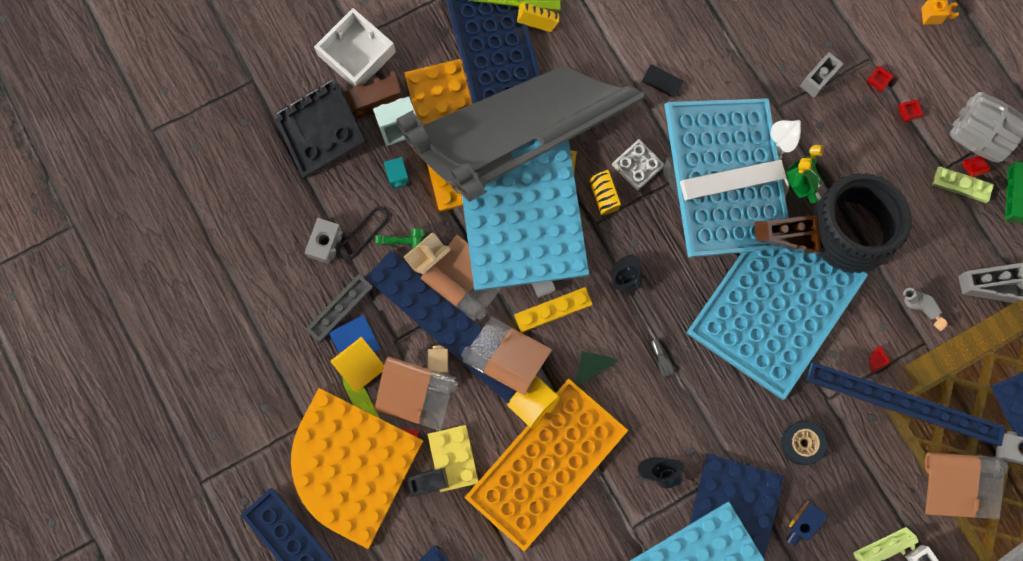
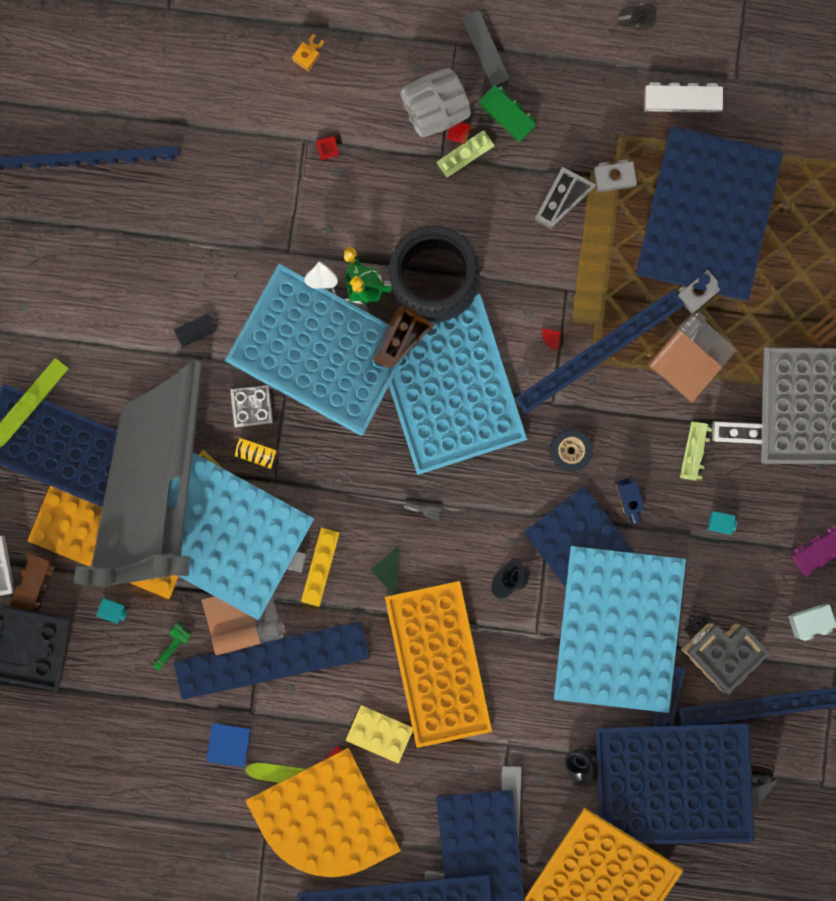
camera: 55 degrees left, 10 degrees up
(322, 230) = (115, 707): light grey brick -> none
(339, 308) = (191, 738): dark grey plate -> none
(358, 364) = (250, 756): yellow slope -> none
(386, 117) = (62, 581): light aqua piece -> none
(386, 218) = (149, 672): black piece -> none
(414, 393) = (306, 727): nougat door -> none
(426, 254) = (200, 636): tan panel -> none
(428, 482) = (384, 767): black tile -> none
(438, 359) = (293, 690): tan brick -> none
(506, 355) = (330, 632): nougat door -> none
(535, 403) = (382, 638): yellow slope -> none
(537, 17) = (62, 394): yellow brick -> none
(627, 275) = (336, 487): black piece -> none
(732, 180) = (326, 350): white tile -> none
(821, 74) = (289, 198): light grey brick -> none
(910, 110) = (373, 144): red tile -> none
(925, 303) = (531, 269): light grey arm -> none

